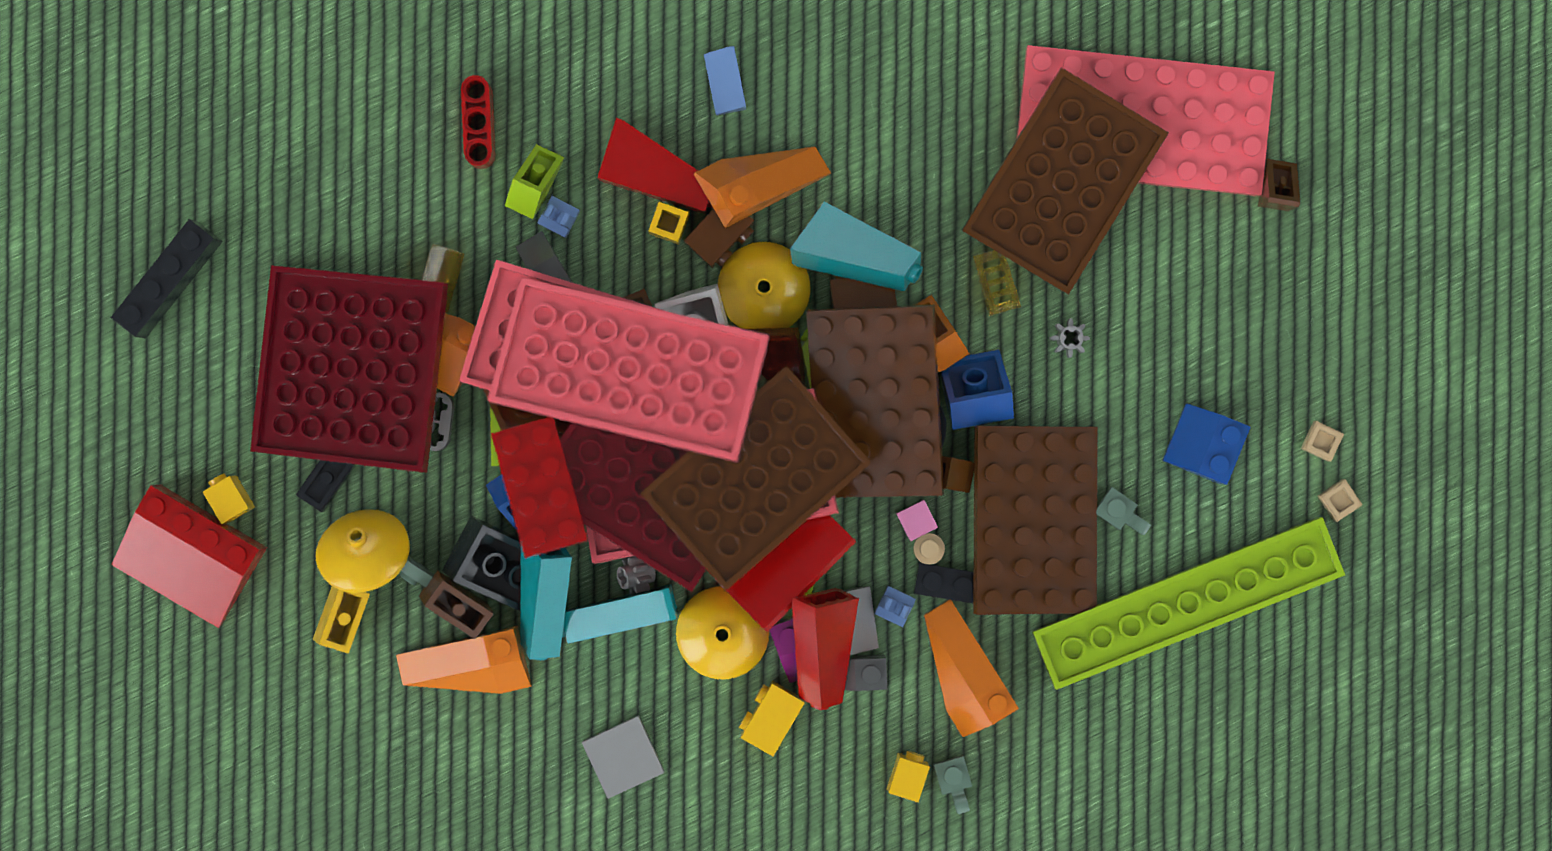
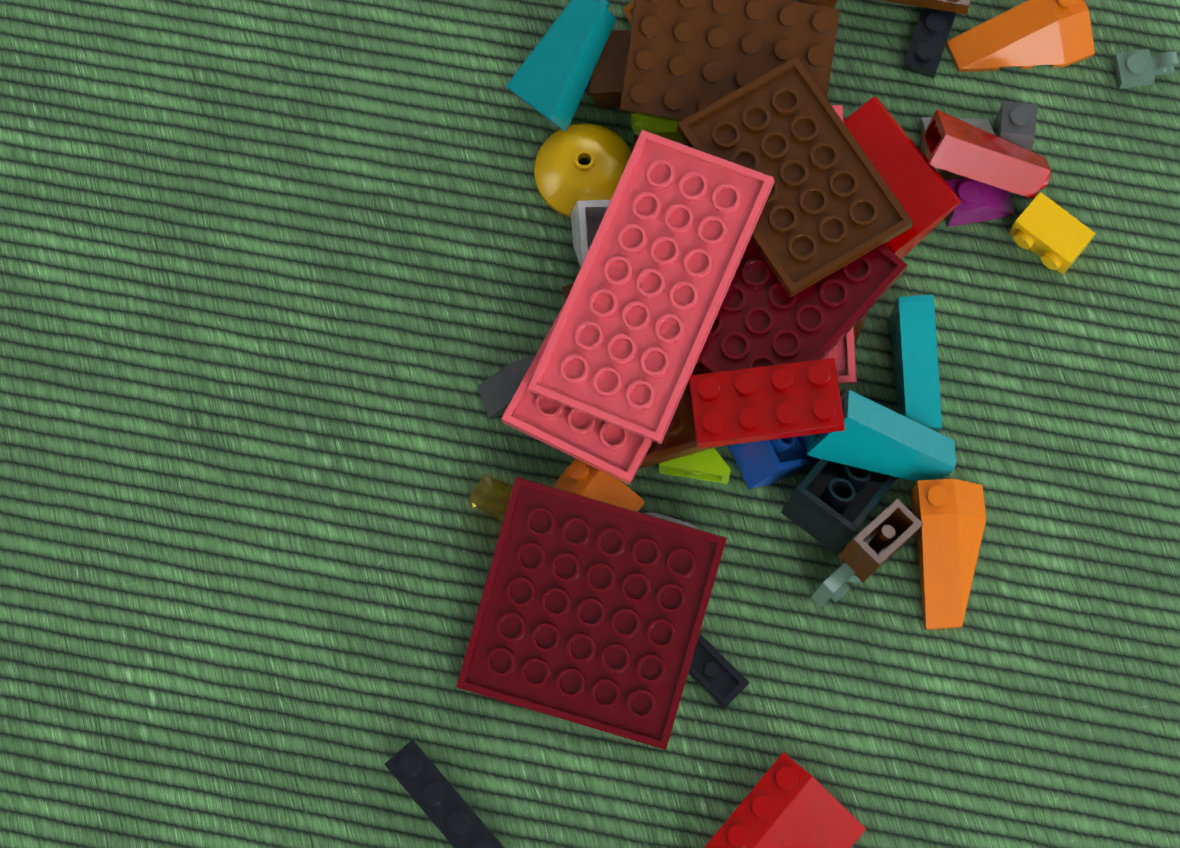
camera: 80 degrees left, 15 degrees down
(228, 498) = (716, 785): yellow brick -> none
(340, 619) = (875, 675): yellow brick -> none
(365, 562) = (818, 638): yellow dish -> none
(472, 108) = (330, 419): red beam -> none
(533, 181) = (423, 381): lime slope -> none
(558, 216) = (465, 366): medium blue tile -> none
(623, 756) = (1074, 399): light grey tile -> none
(635, 575) = (874, 346): light grey gear -> none
(649, 169) = (435, 257): red slope -> none
(668, 223) = (496, 245): yellow brick -> none
(701, 648) = (957, 293): yellow dish -> none
(713, 241) = (517, 199): reddish brown brick -> none
(725, 81) = (356, 169): medium blue slope -> none
(753, 182) = (470, 149): orange wedge -> none
(895, 606) = (946, 94): medium blue tile -> none
(908, 776) = (1131, 108): yellow brick -> none
(917, 520) = (858, 59): bright pink tile -> none
(929, 548) = (890, 52): tan plate -> none

